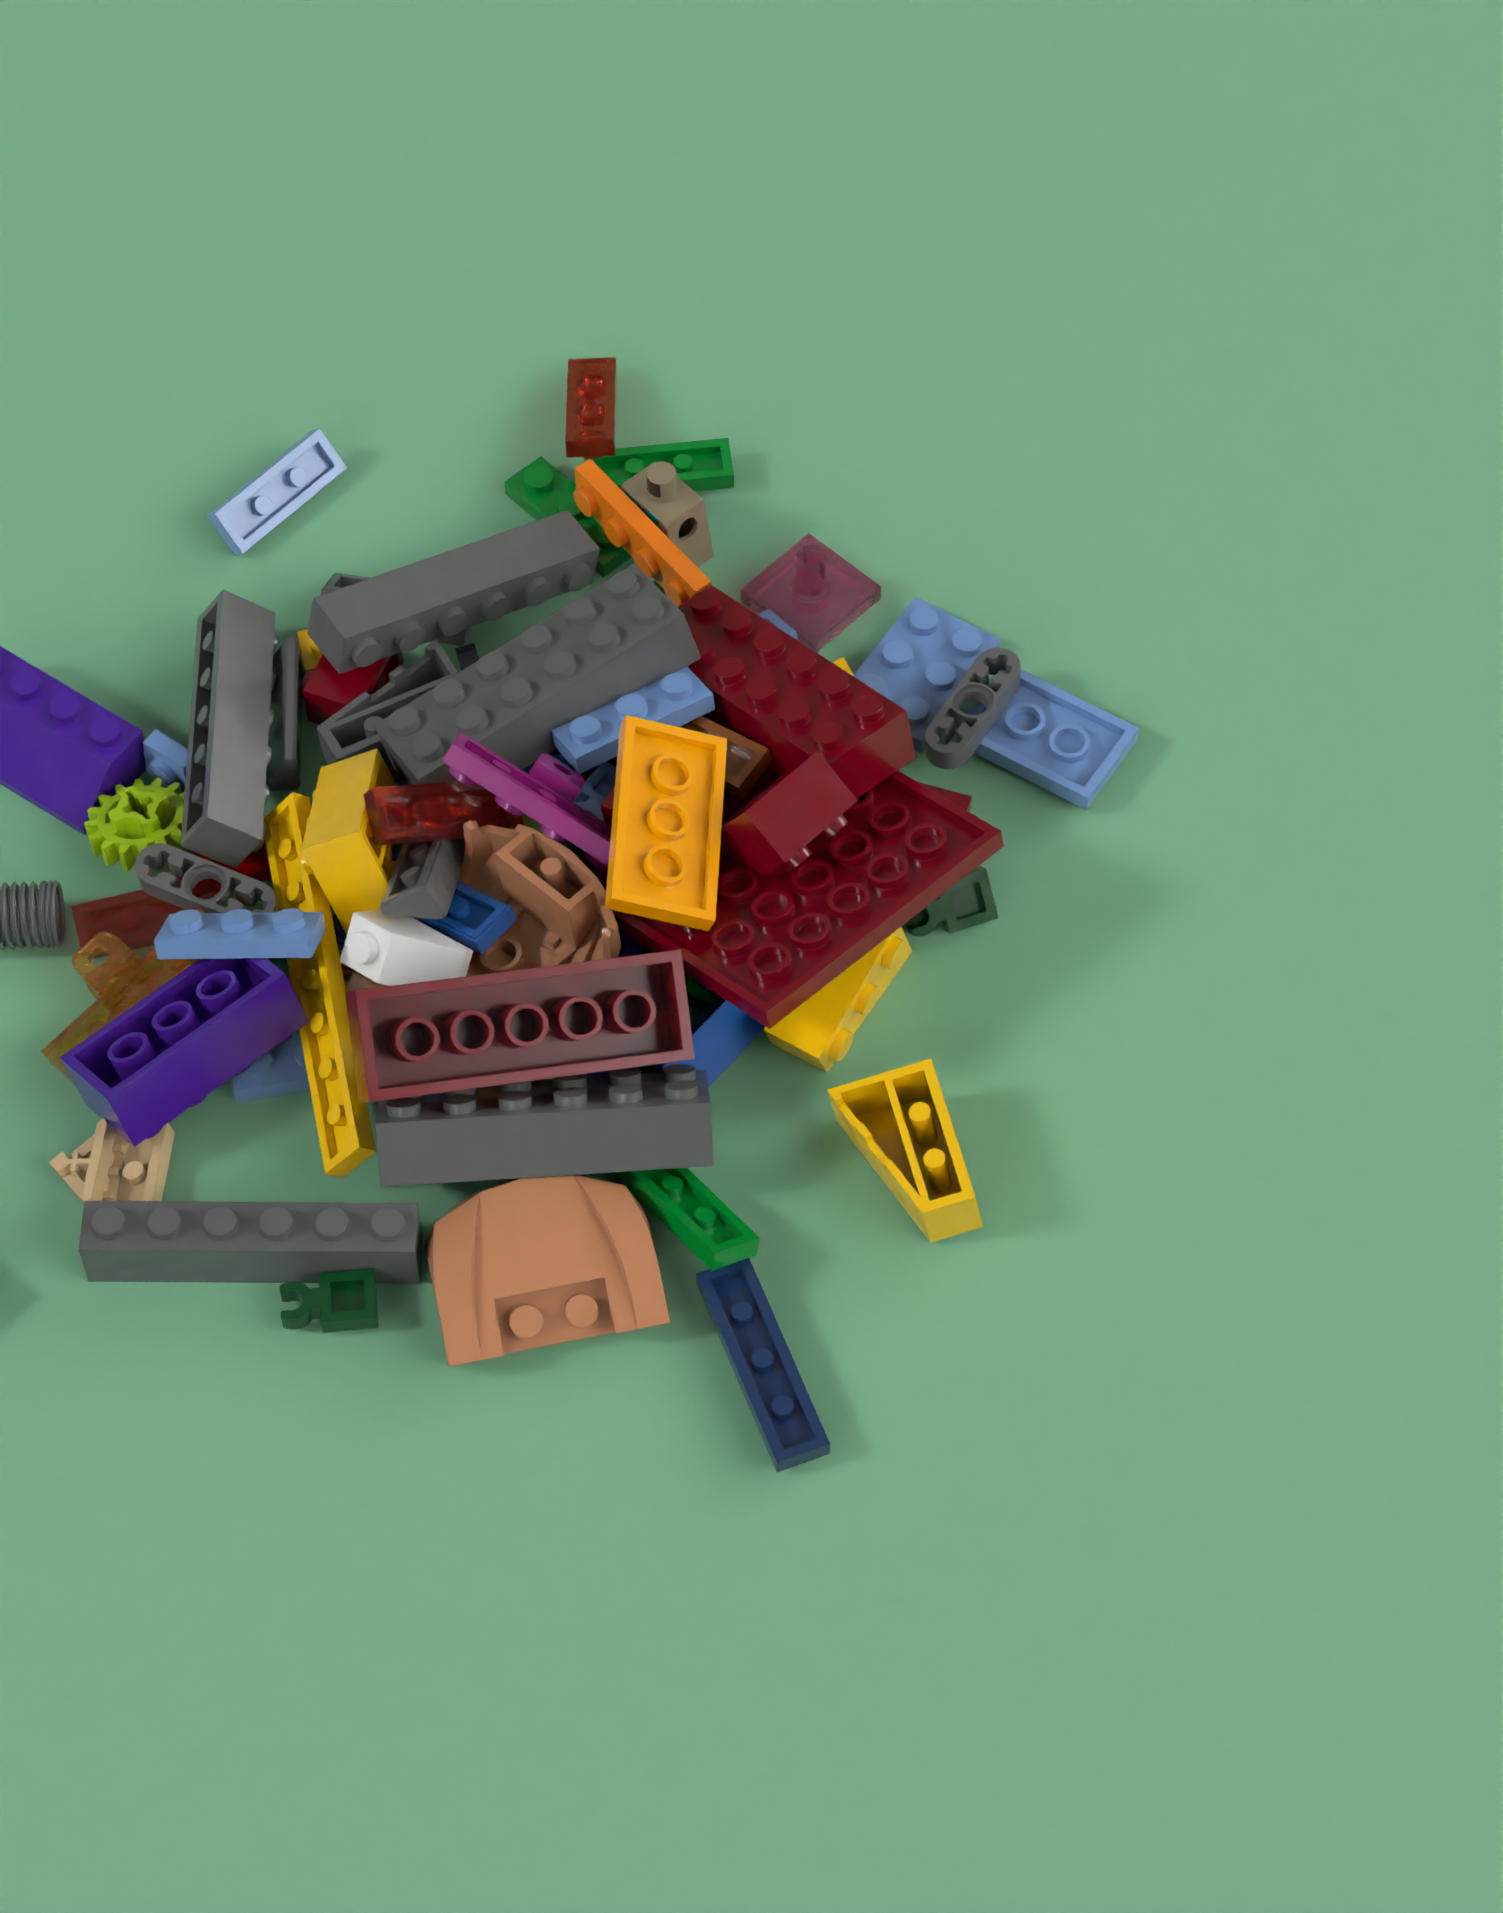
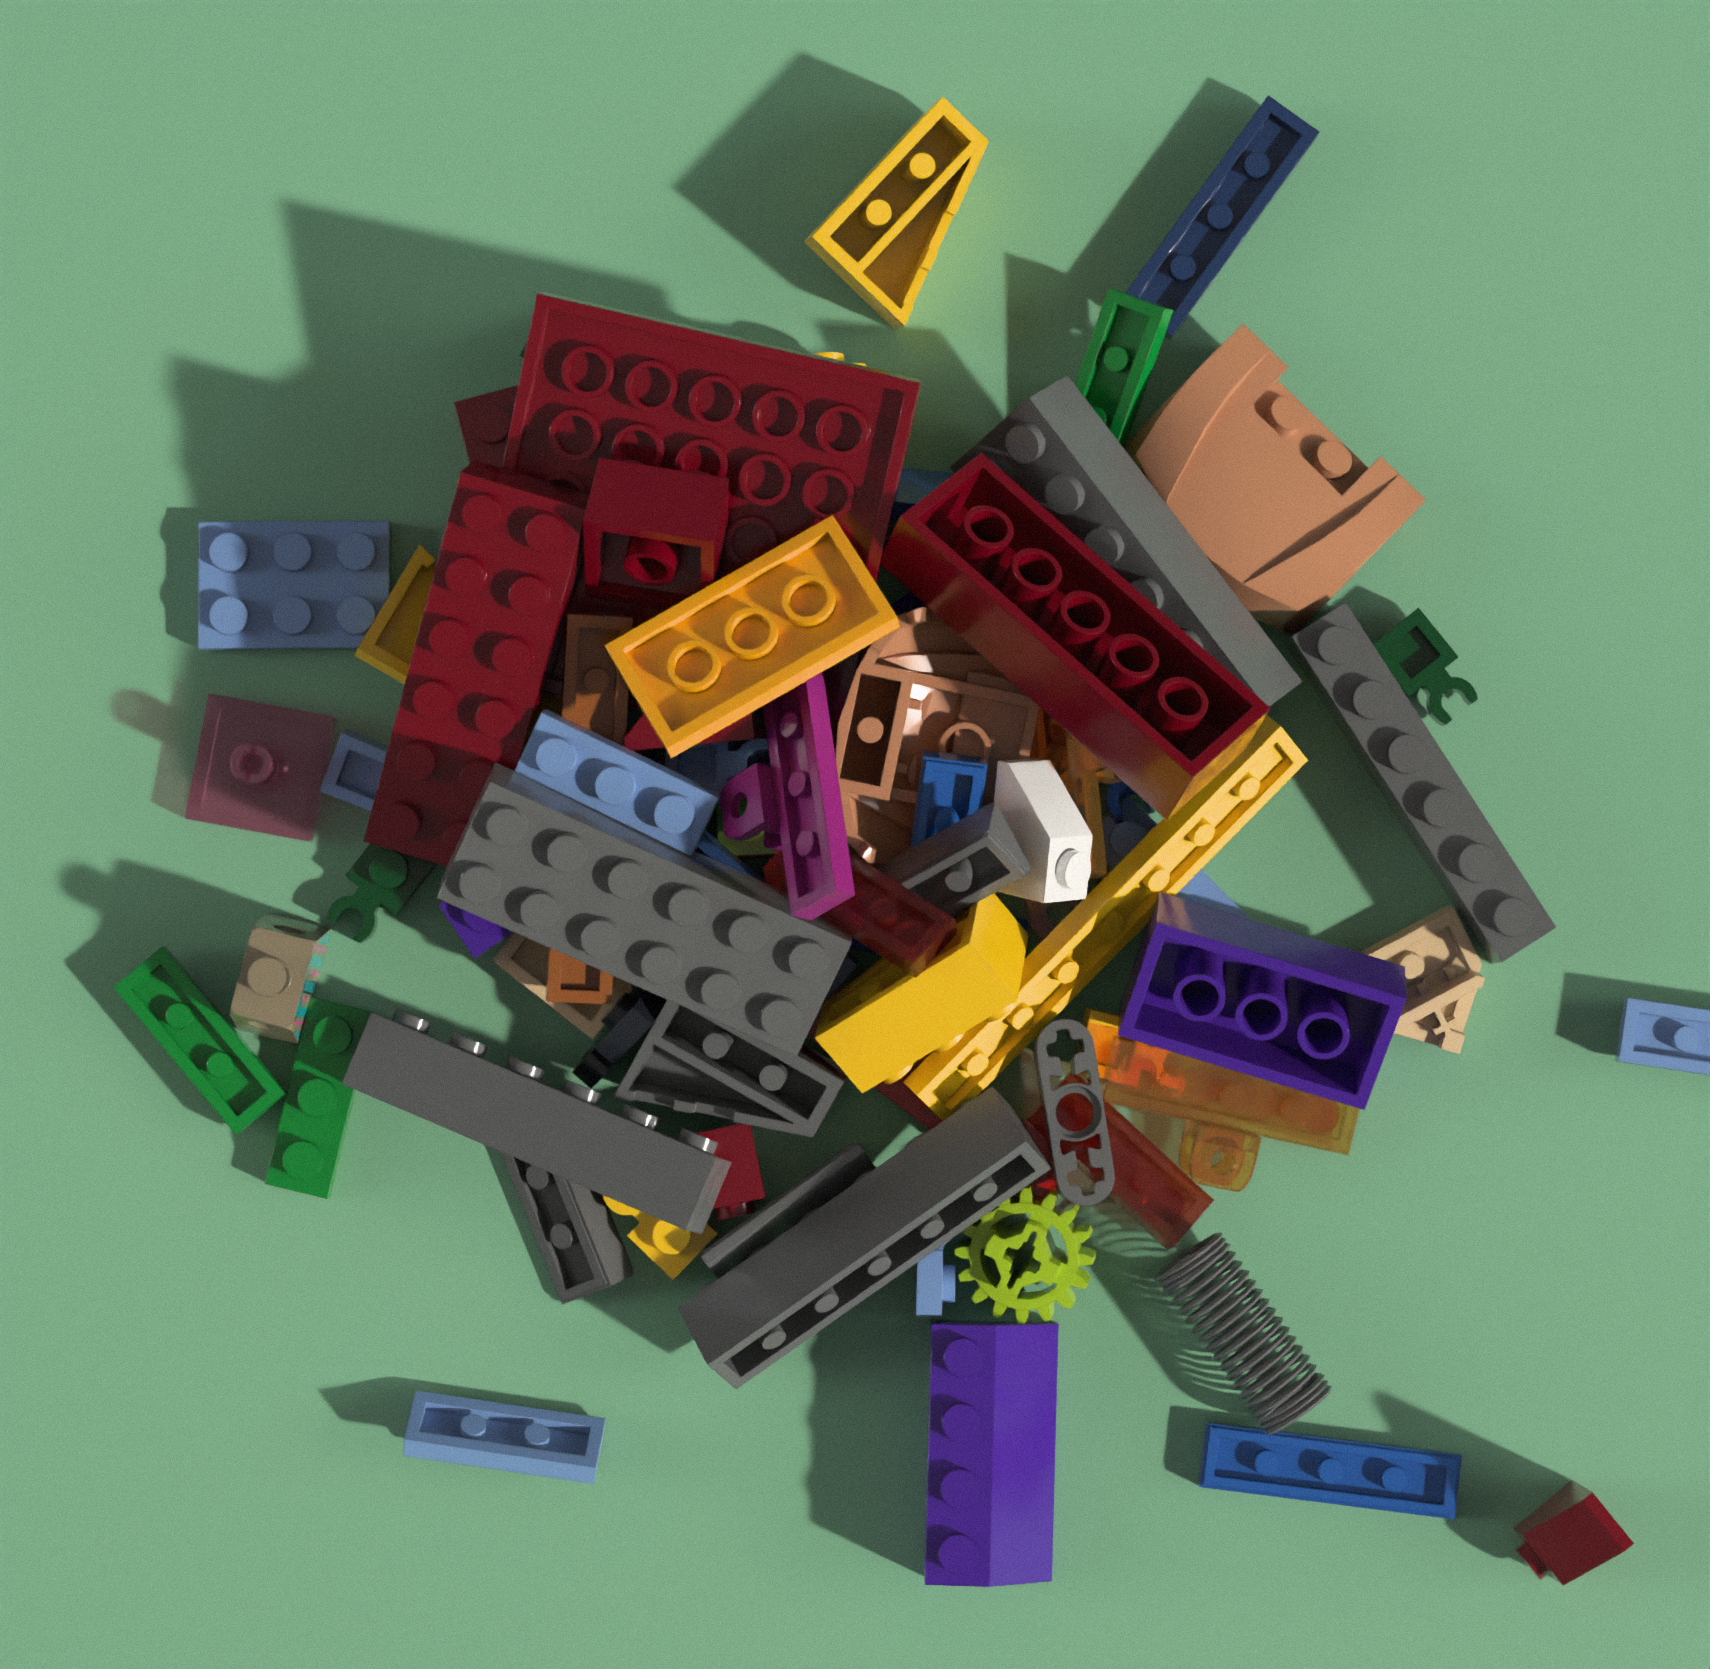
camera: 120 degrees left, 30 degrees up
(240, 934) = (1127, 1016): medium blue plate -> none
(591, 407) = (170, 1165): clear red plate -> none
(633, 530) = (328, 997): orange plate -> none
(972, 727) = (278, 499): dark grey beam -> none
(1057, 740) = (296, 396): medium blue plate -> none

